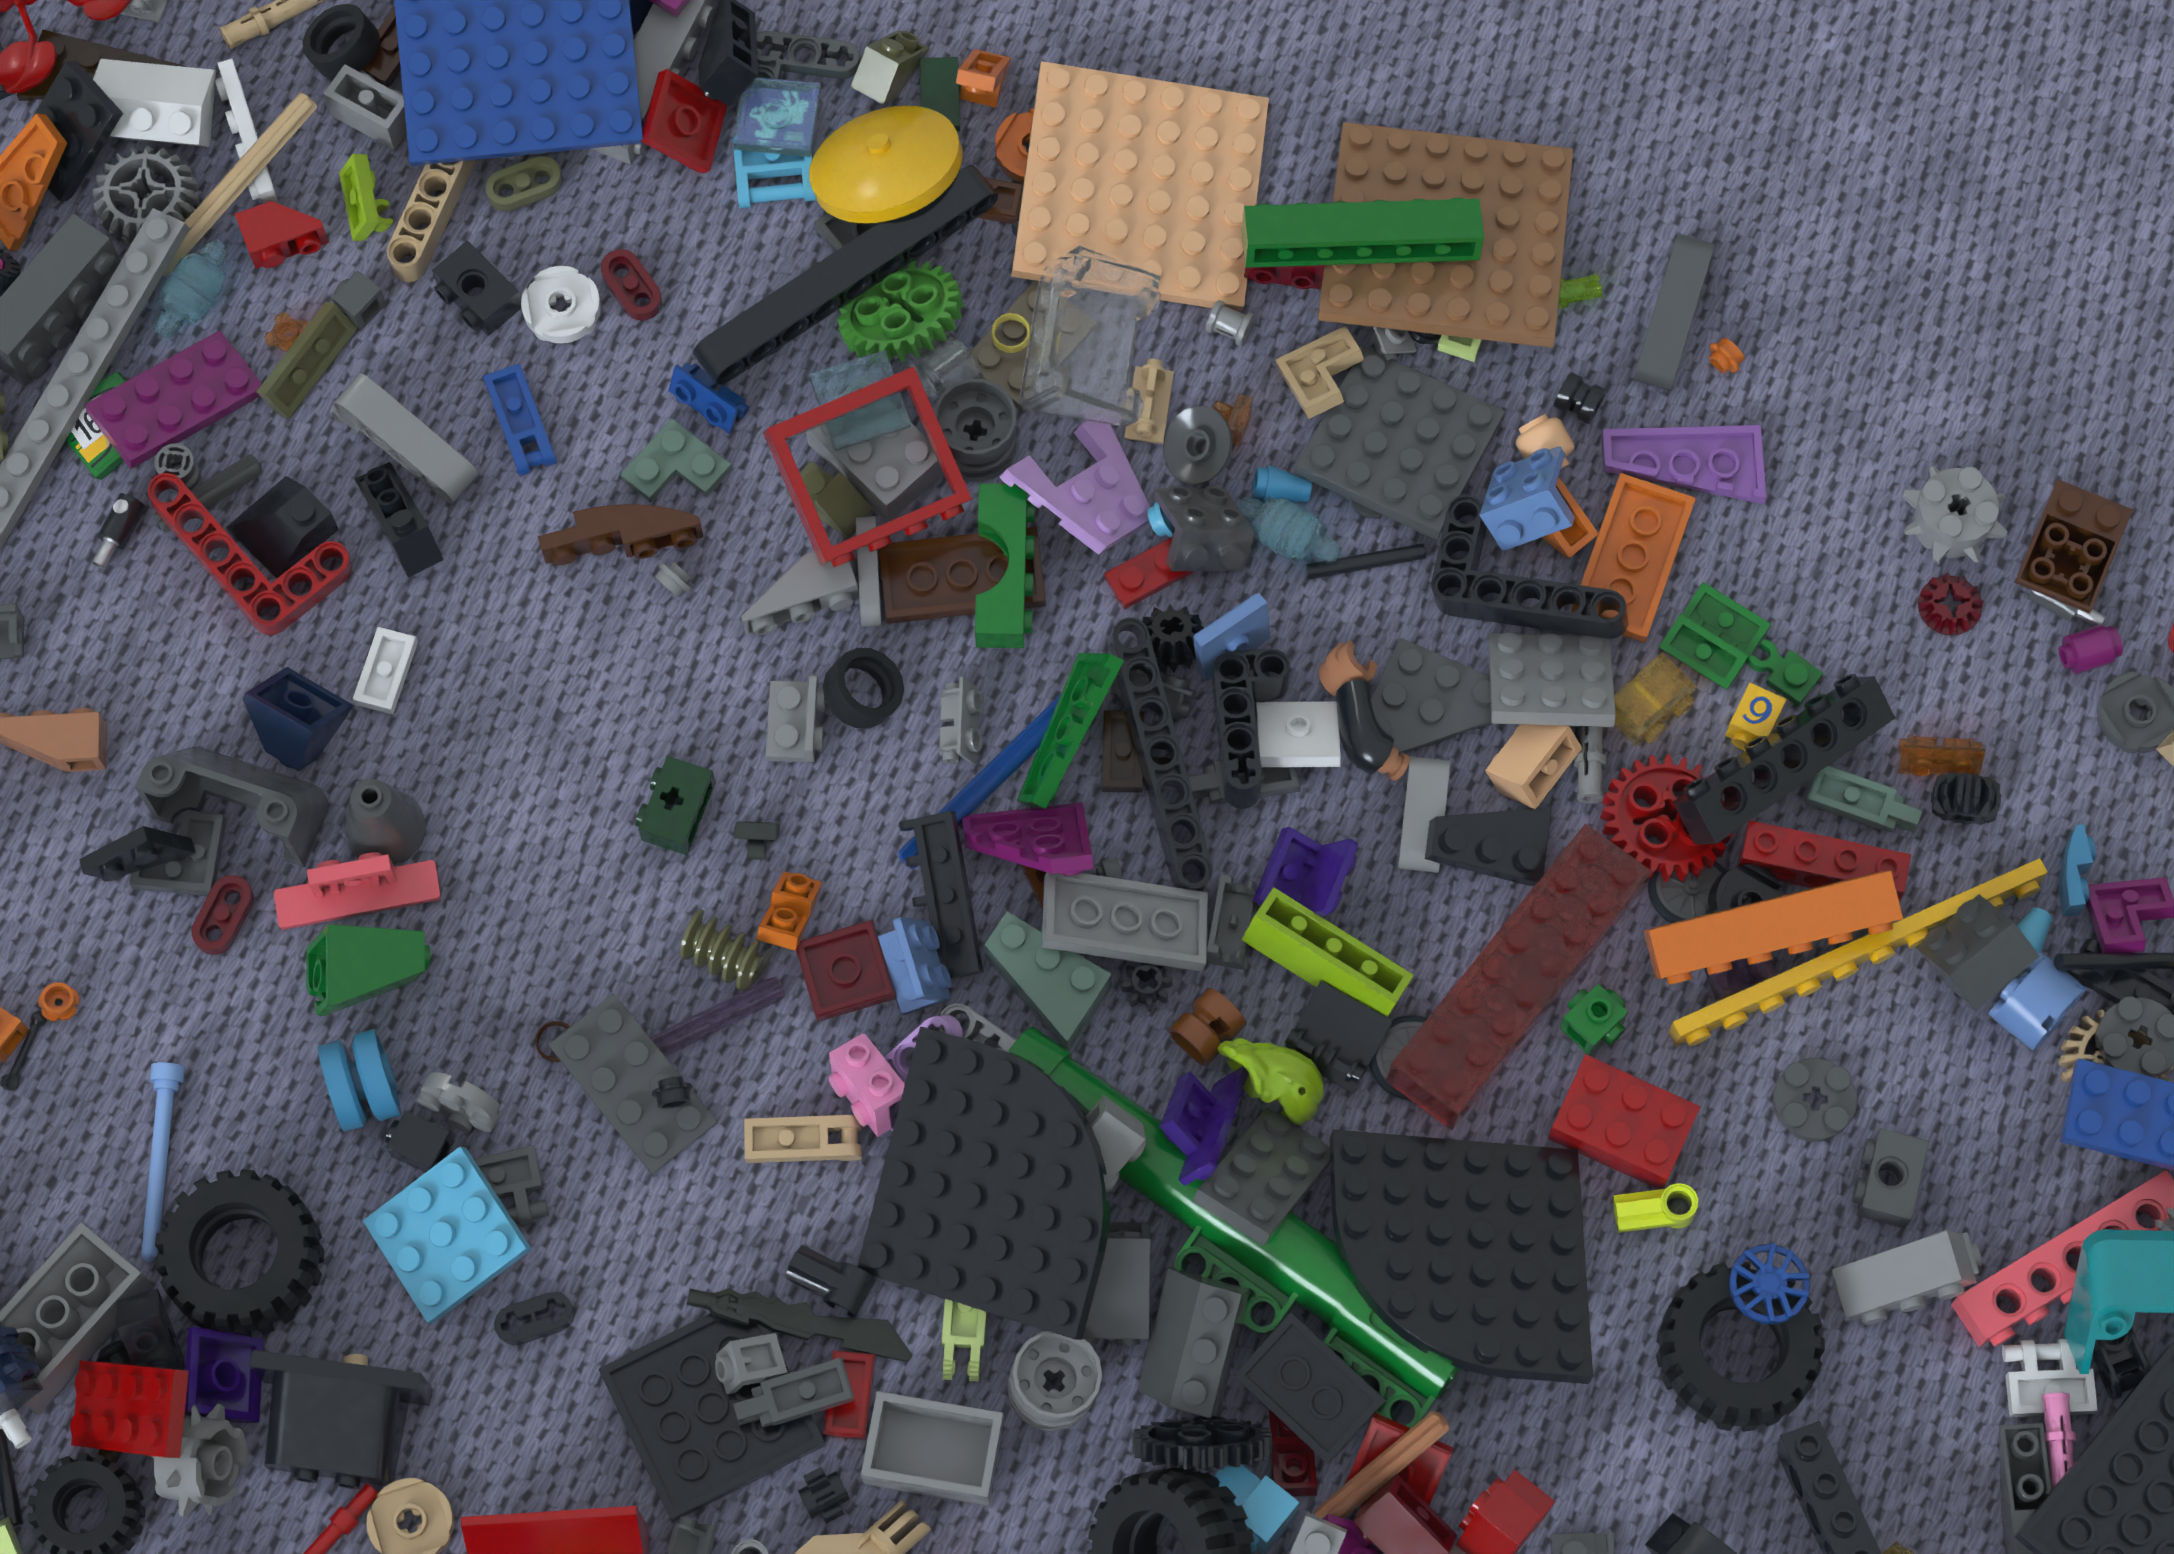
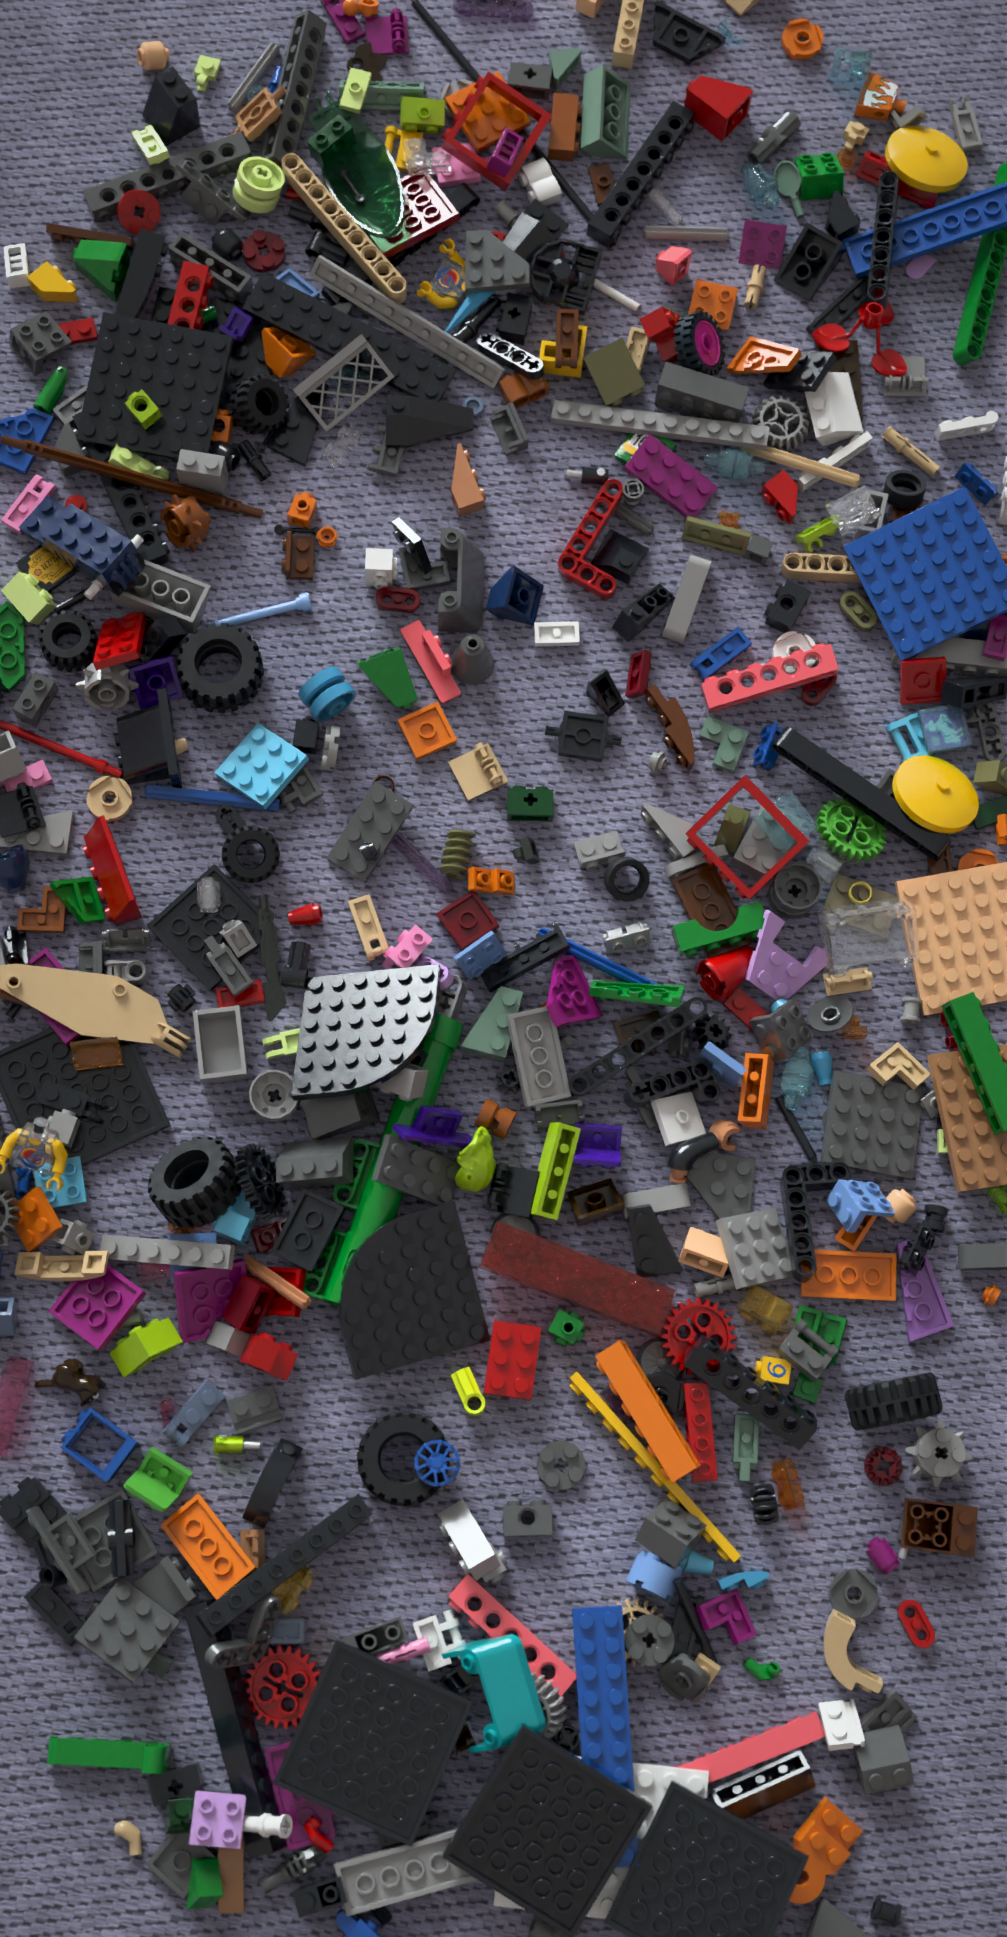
camera: 65 degrees right, 5 degrees up
(77, 1060) = (299, 557): none -> reddish brown bracket
(158, 922) = (380, 567): none -> white brick
(344, 126) = (850, 506): none -> clear plate
(466, 1356) = (205, 797): none -> blue axle
(482, 937) = (427, 731): none -> orange plate
(508, 560) = (638, 674): none -> dark red plate
(523, 623) = (605, 693): none -> black slope
(584, 683) = (583, 736): none -> black plate
(585, 875) = (478, 771): none -> tan hinge
(607, 256) = (821, 653): none -> coral brick
(624, 1270) = (270, 848): none -> black tyre
(656, 1390) = (208, 895): none -> clear brick
(744, 1238) = (306, 915): none -> red cone
(1075, 583) = (724, 972): none -> red cone
(1292, 598) = (756, 1091): none -> orange brick
(1397, 909) = (595, 1202): none -> dark brown slope
(1612, 419) = (922, 1239): none -> black hinge
(1745, 663) = (802, 1355): none -> dark grey plate
(1864, 543) = (893, 1401): none -> black tyre

